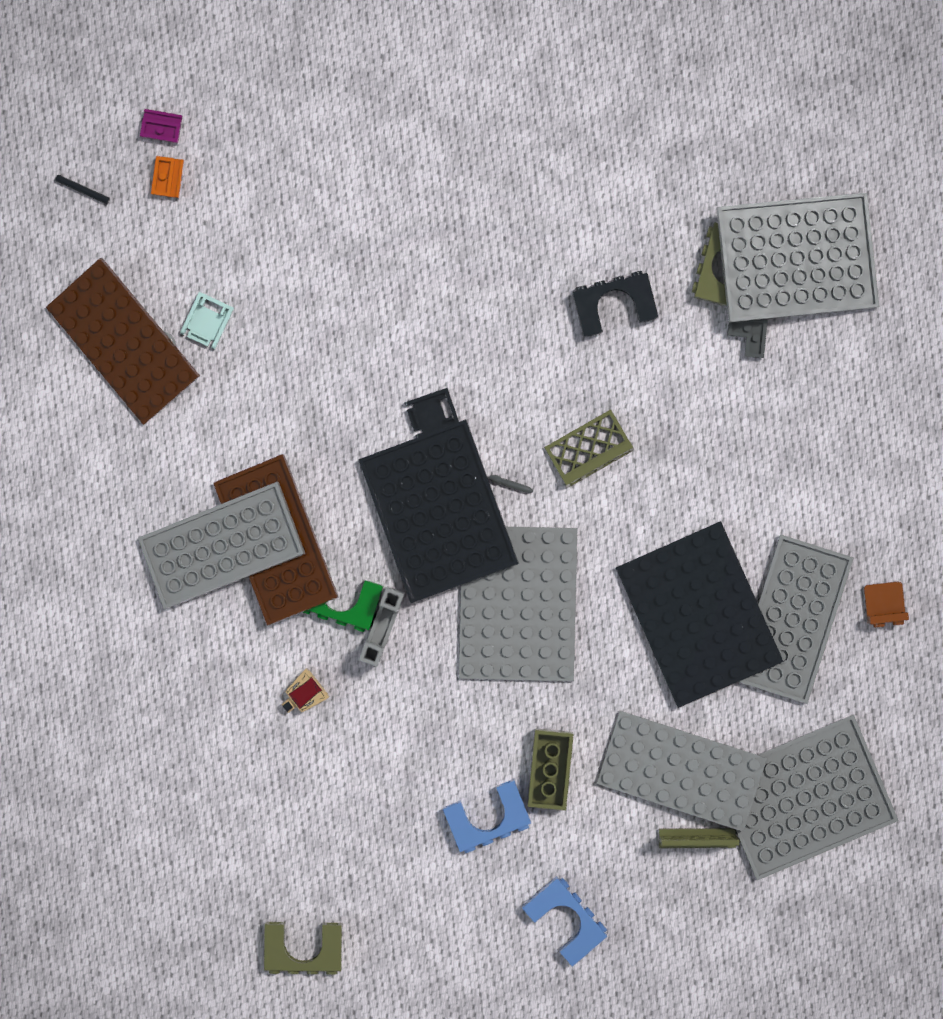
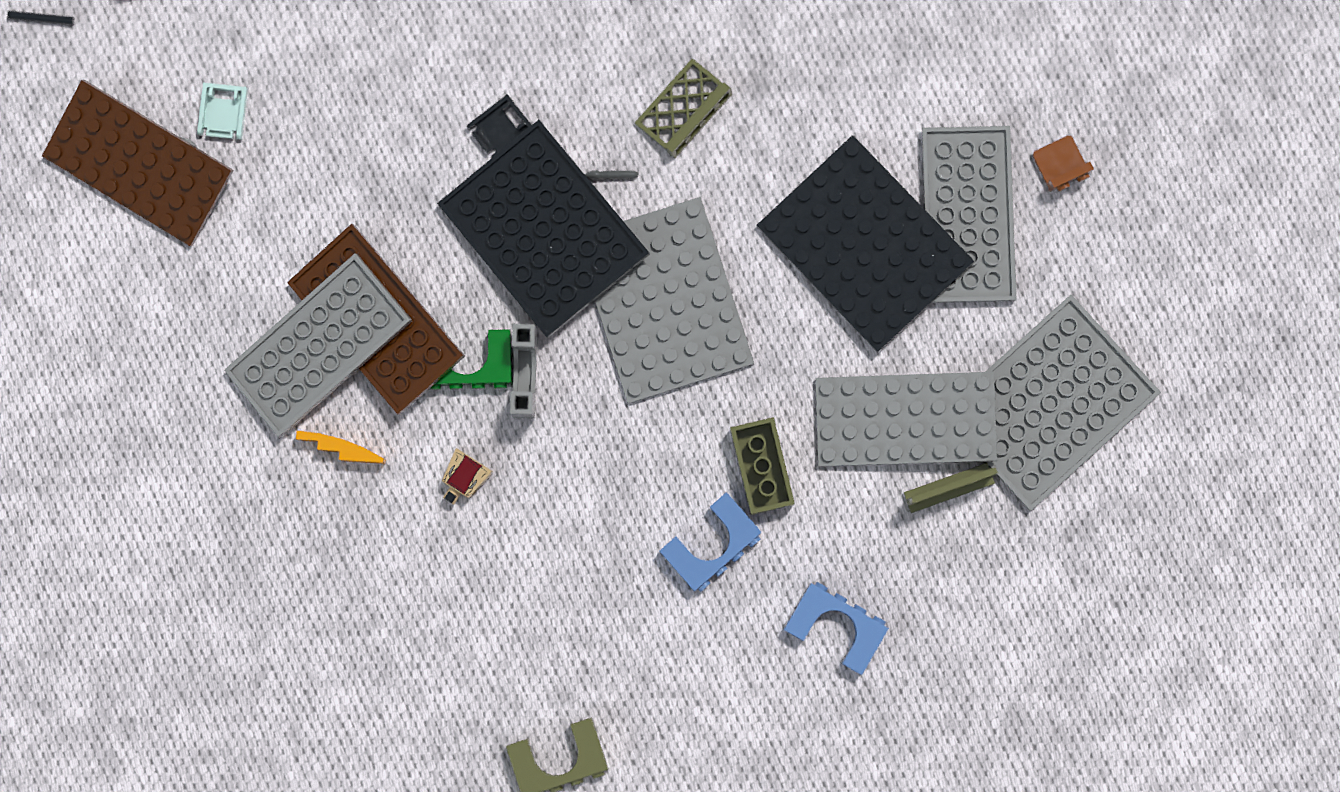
camera: 20 degrees left, 5 degrees down
(217, 638) = (347, 451): none -> light orange slope

